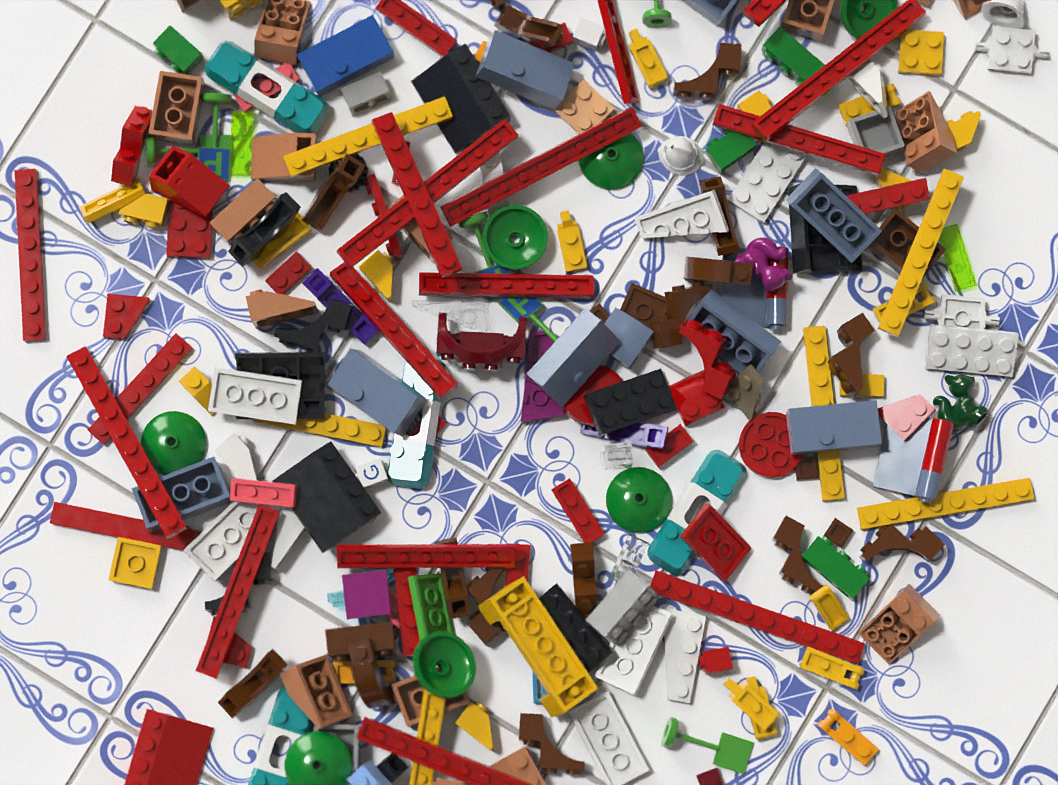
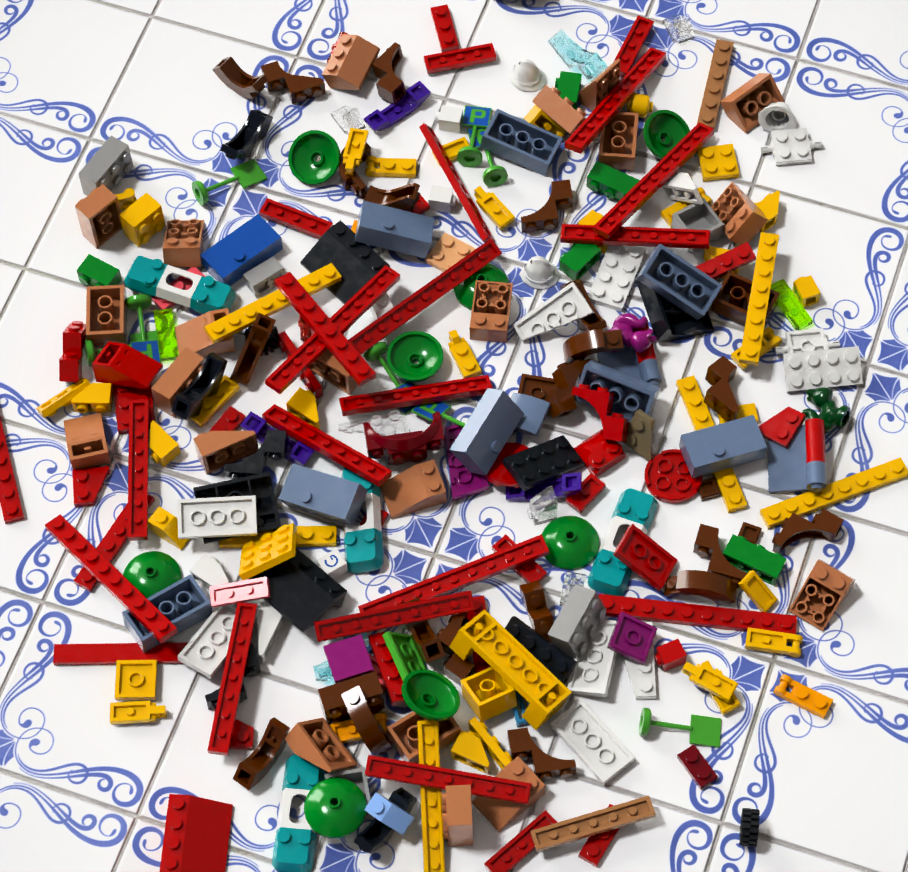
camera: 10 degrees left, 20 degrees down
(128, 261) = (86, 441): none -> nougat slope
(128, 600) = (136, 712): none -> yellow hinge
(179, 313) = (138, 470): none -> red plate
(210, 286) = (162, 446): none -> yellow slope
(303, 450) = (268, 551): none -> yellow plate
(480, 401) = (414, 489): none -> nougat slope
(500, 721) = (490, 743): none -> yellow plate
(505, 521) = (465, 574): none -> red plate
(507, 667) = (488, 694): none -> yellow brick
(614, 195) = (491, 311): none -> nougat slope
(678, 635) = (632, 638): none -> magenta tile
(768, 589) = (701, 583): none -> reddish brown arch
(978, 246) = (806, 291): none -> yellow brick

